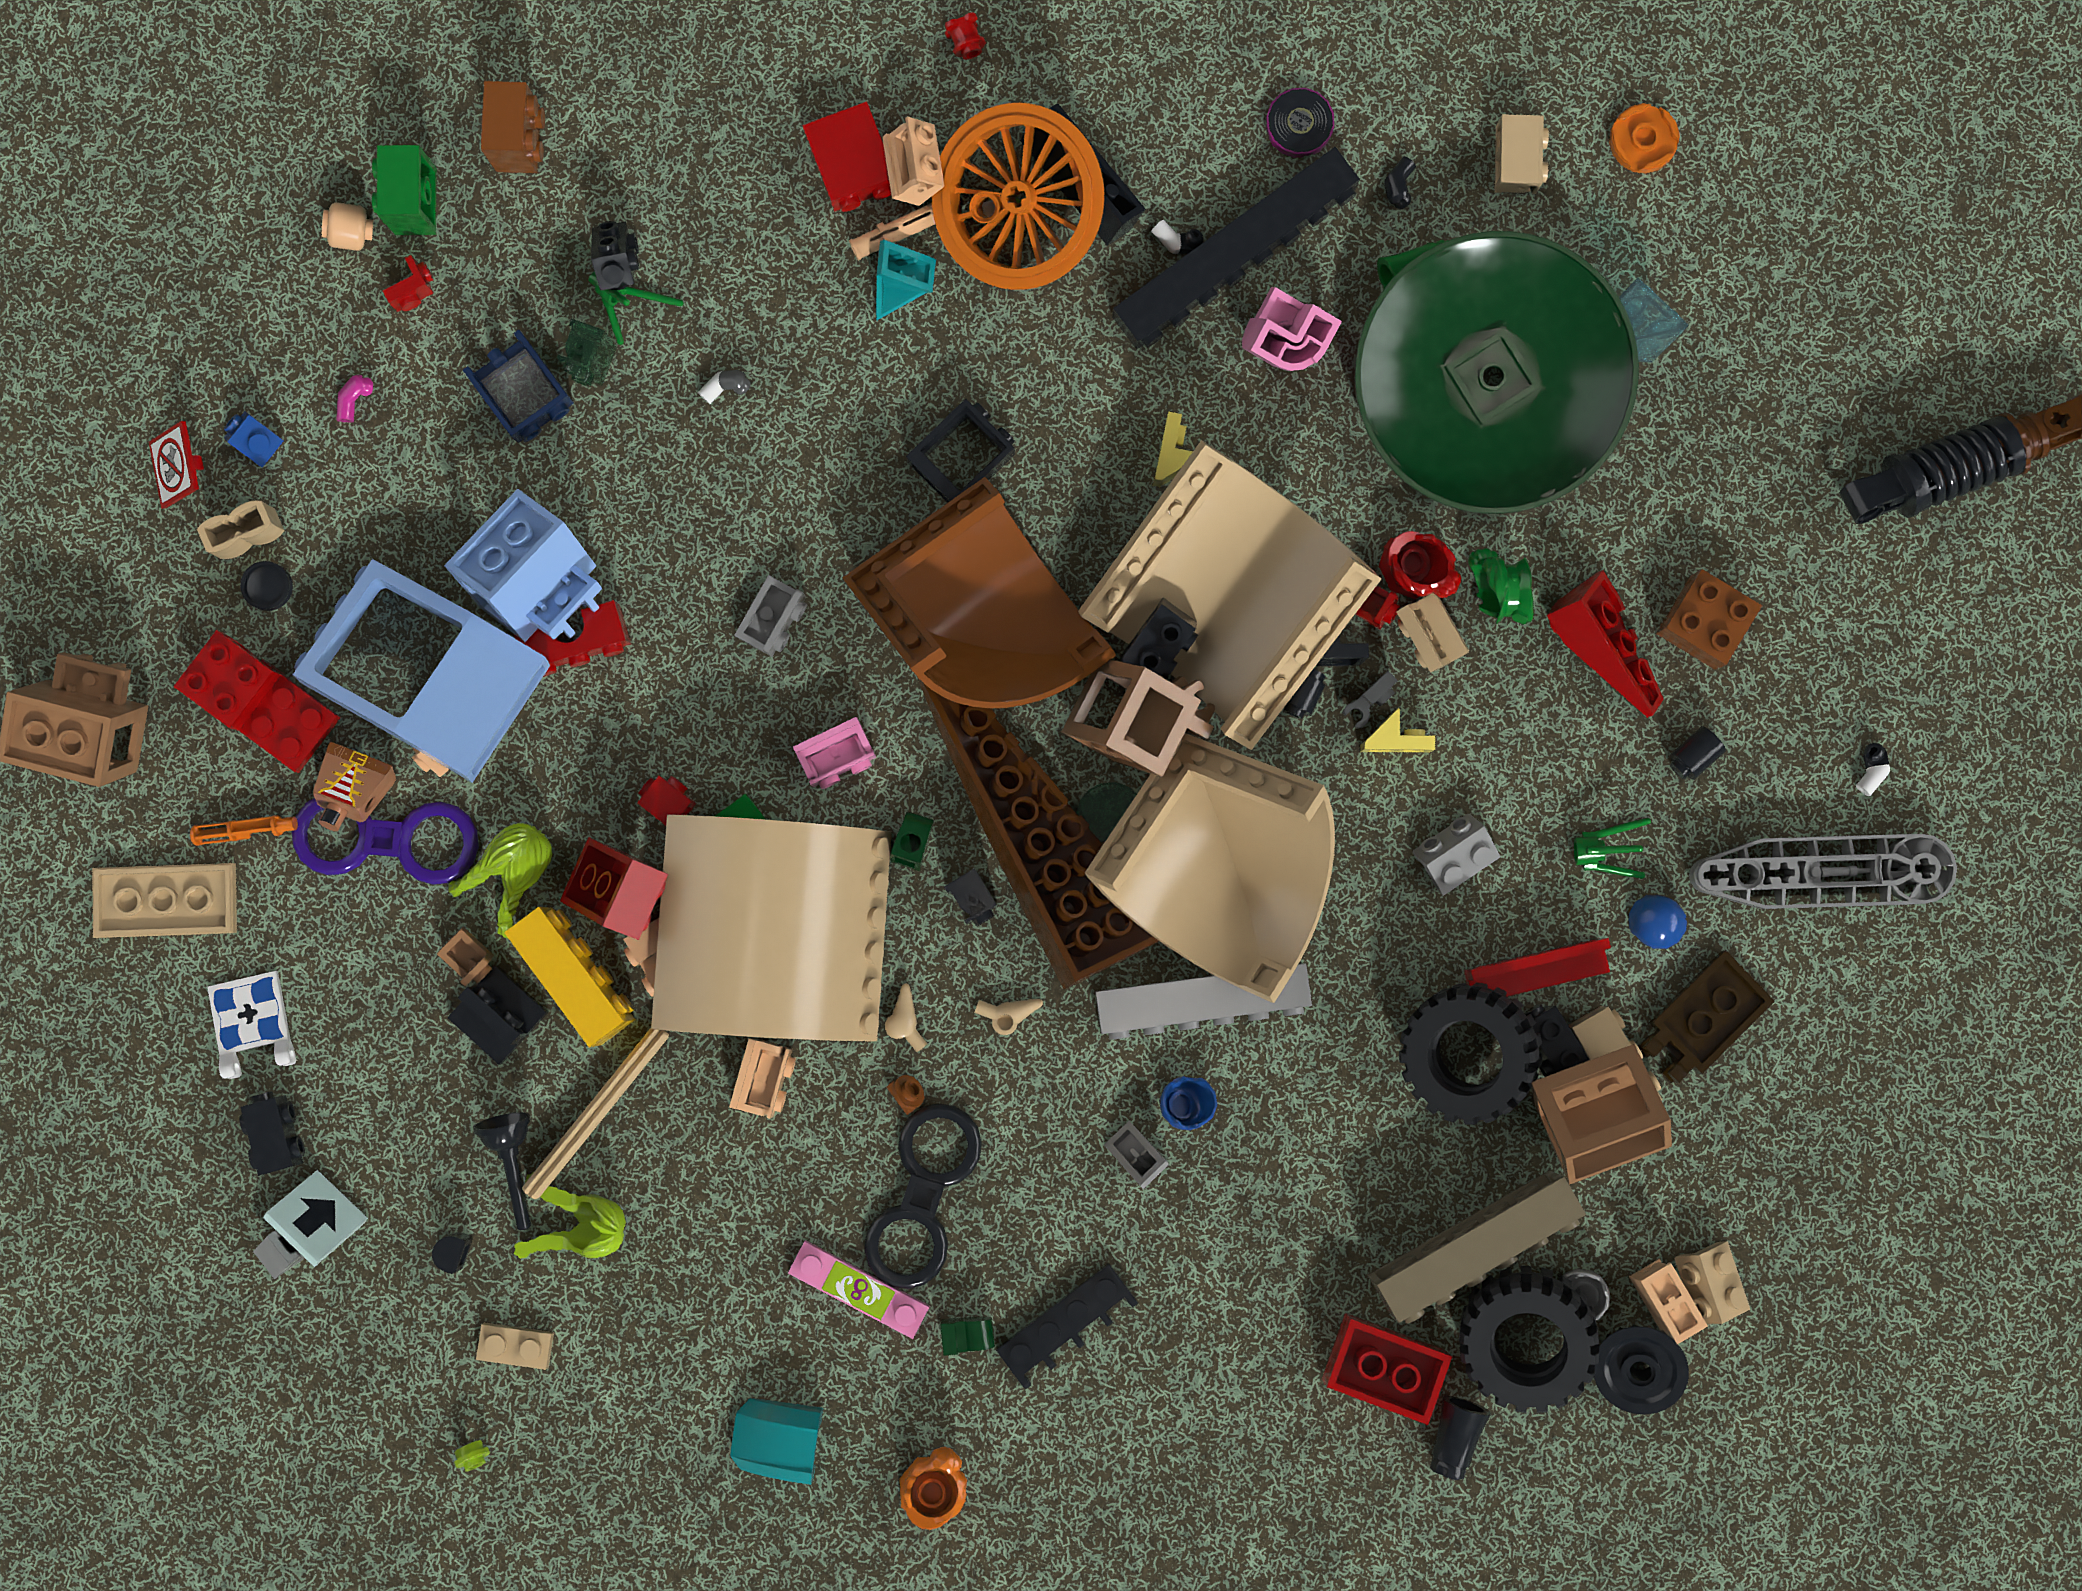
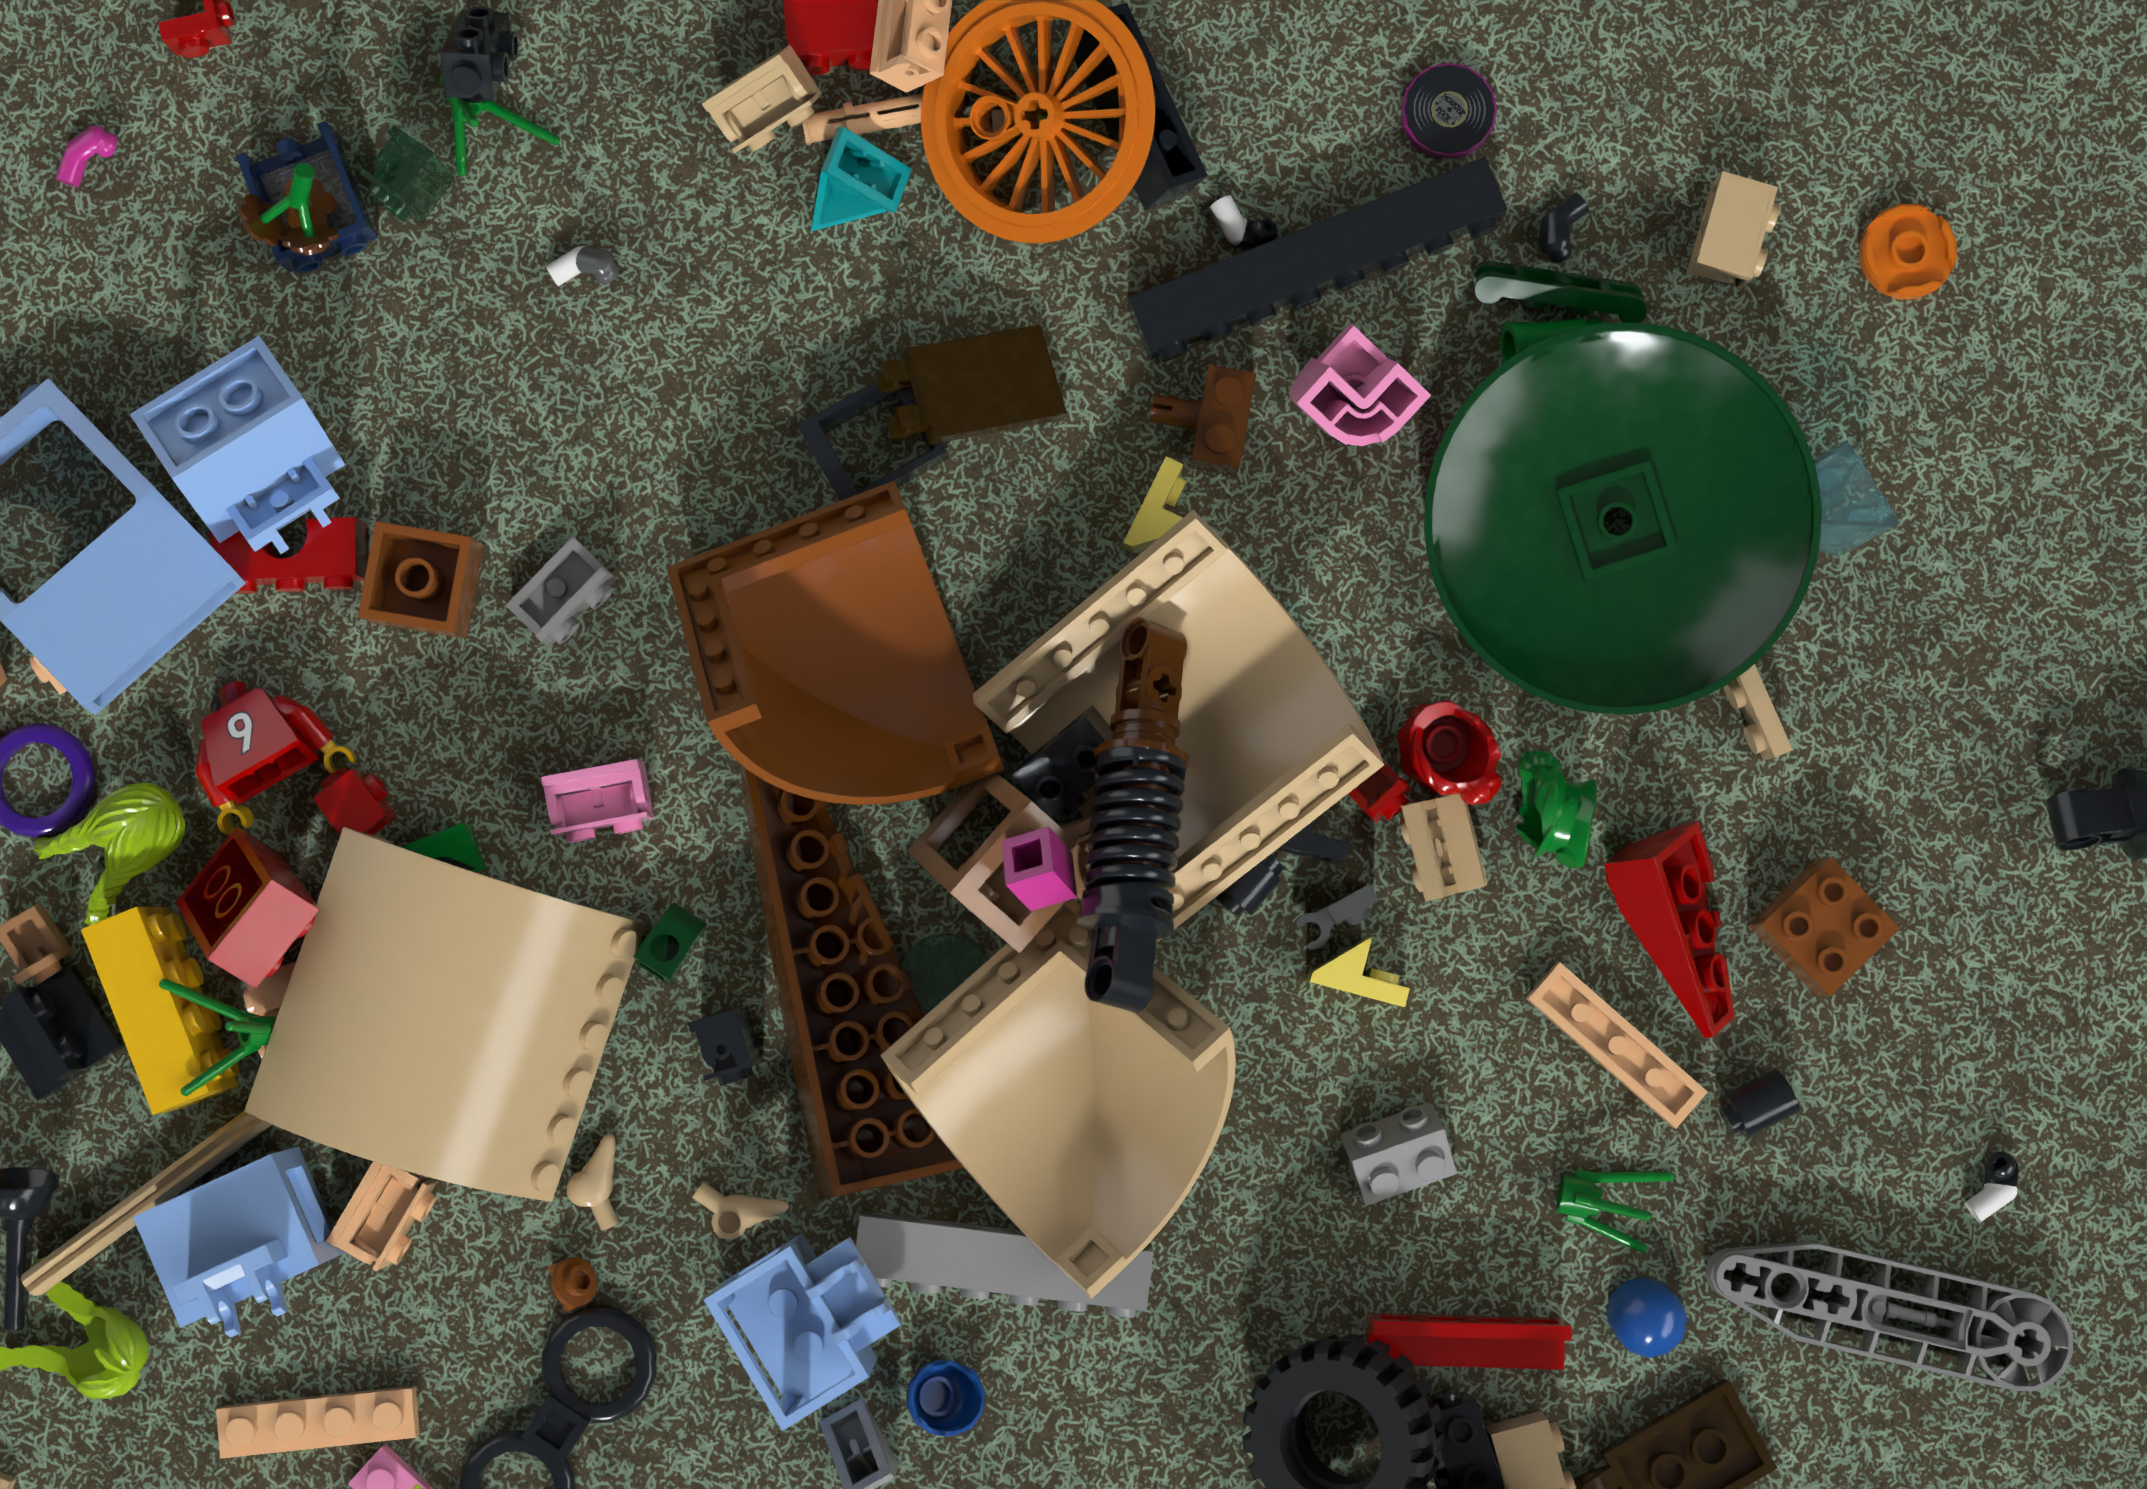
camera: 15 degrees right, 0 degrees up
(520, 394) = (306, 210): none -> reddish brown plant
(586, 777) = (256, 745): none -> red torso
(641, 973) = (252, 1031): none -> green plant
(668, 1120) = (238, 1239): none -> light blue piece
(671, 632) = (421, 580): none -> dark orange brick
(754, 1236) = (317, 1421): none -> light nougat plate
(821, 236) = (764, 99): none -> tan hinge
(1022, 397) = (974, 386): none -> dark brown tile
(1079, 1073) = (806, 1323): none -> light blue piece
(1163, 712) = (1039, 869): none -> dark pink brick
(1196, 377) = (1216, 418): none -> reddish brown brick
(1219, 662) = (1135, 820): none -> black piece
(1397, 227) = (1541, 287): none -> dark green plate
(1587, 739) = (1616, 1045): none -> light nougat plate
(1632, 493) = (1764, 728): none -> tan plate

